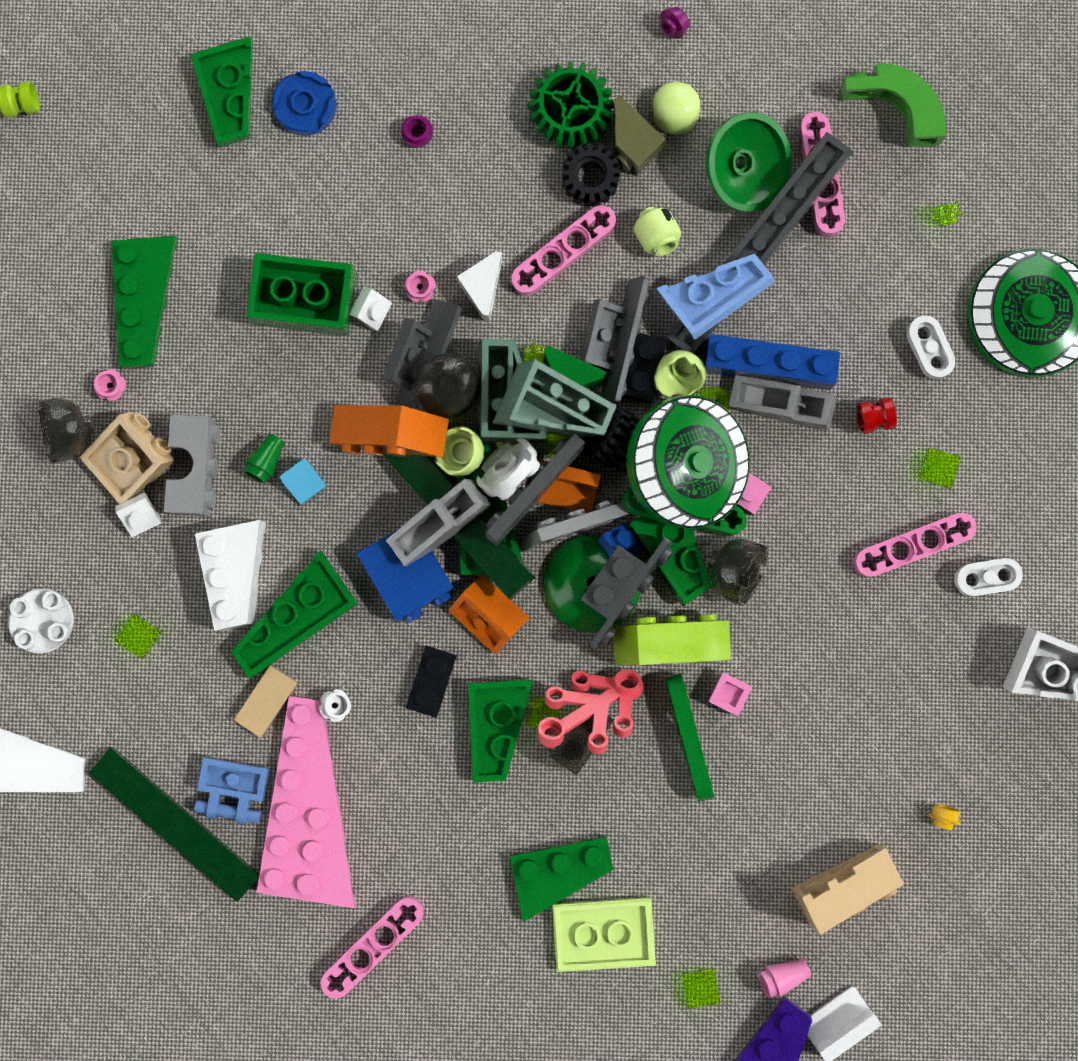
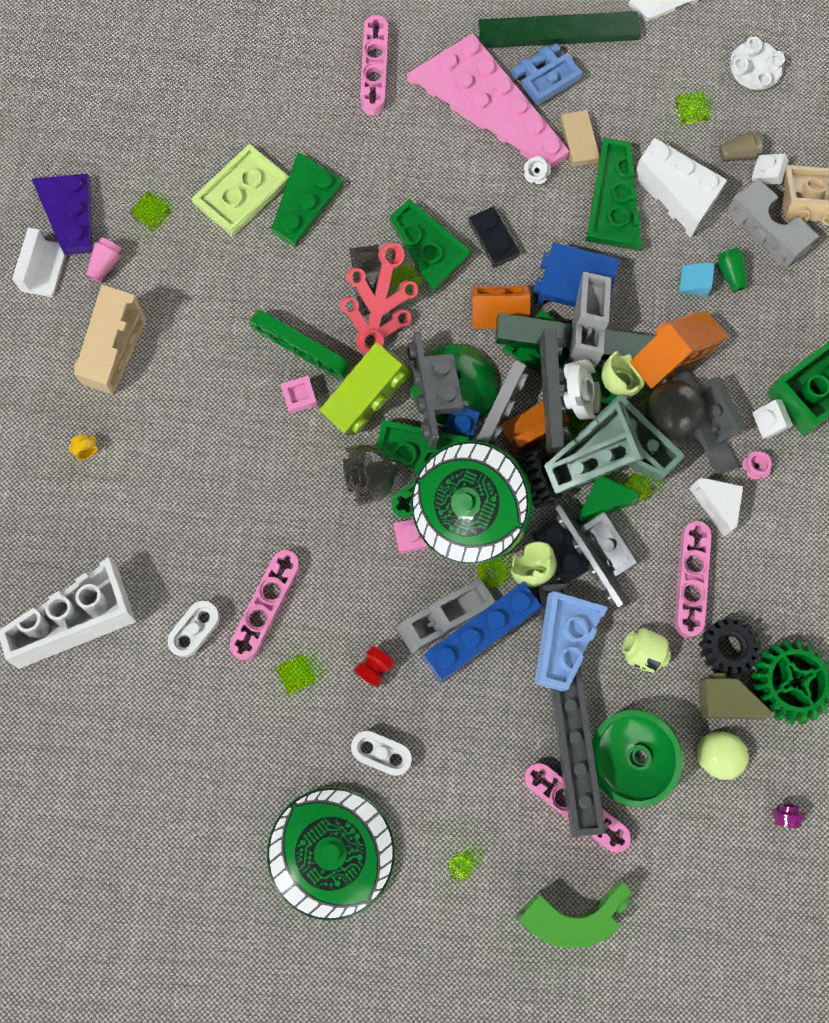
camera: 130 degrees right, 10 degrees down
(139, 556) = (743, 147): none -> dark tan cone

